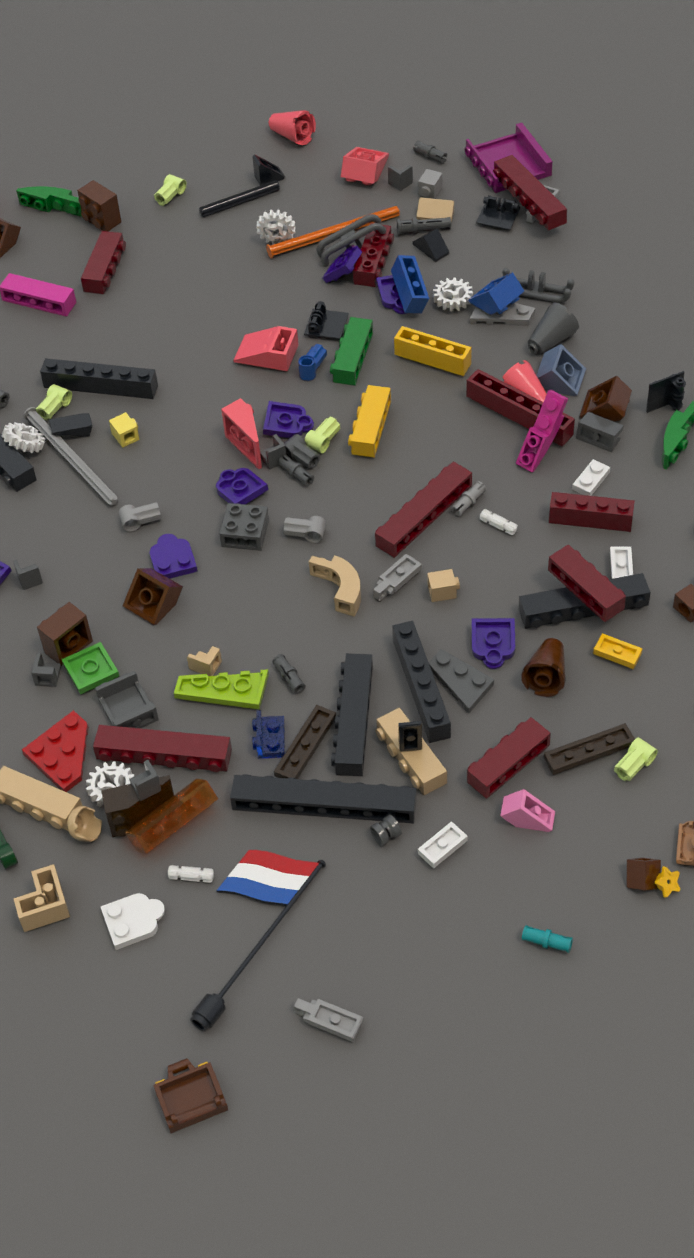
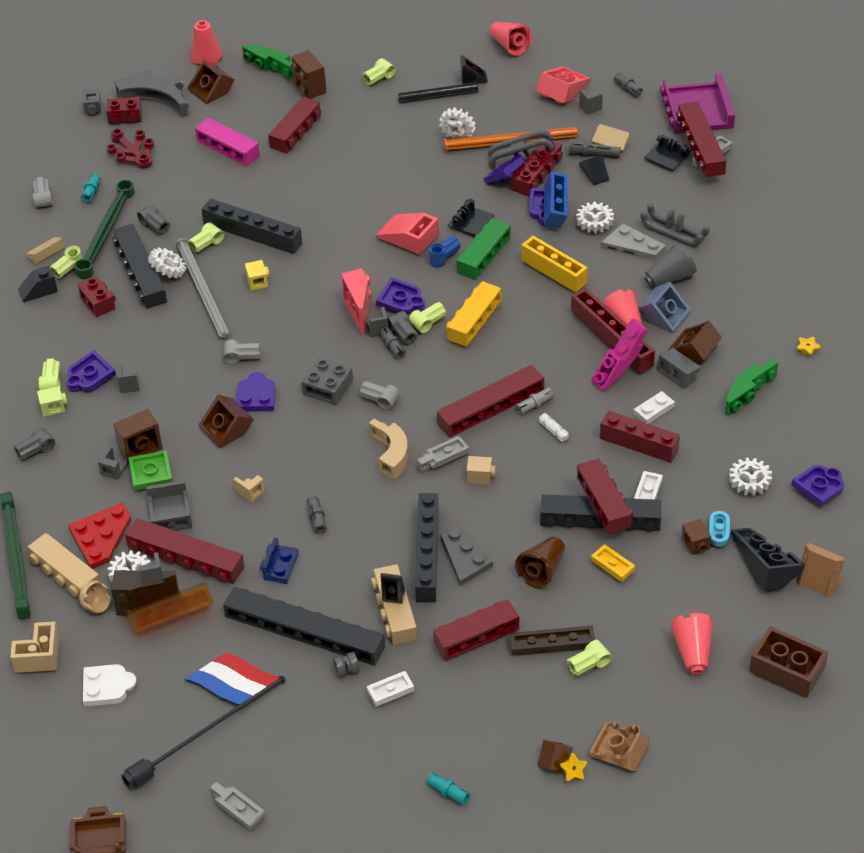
camera: 15 degrees right, 5 degrees down
(71, 425) = (212, 261): black slope -> none
(190, 873) = (168, 660): white axle -> none
(233, 690) = (256, 514): lime wing -> none
(240, 486) = (338, 345): dark purple plate -> none
(305, 743) = (307, 575): dark brown plate -> none
(354, 714) = (357, 562): black brick -> none
(430, 184) = (615, 113): light grey brick -> none
(493, 640) = (506, 528): dark purple plate -> none
(498, 294) = (633, 225): blue slope -> none
(527, 812) = (474, 679): bright pink slope -> none
(666, 392) = (751, 345): black hinge -> none

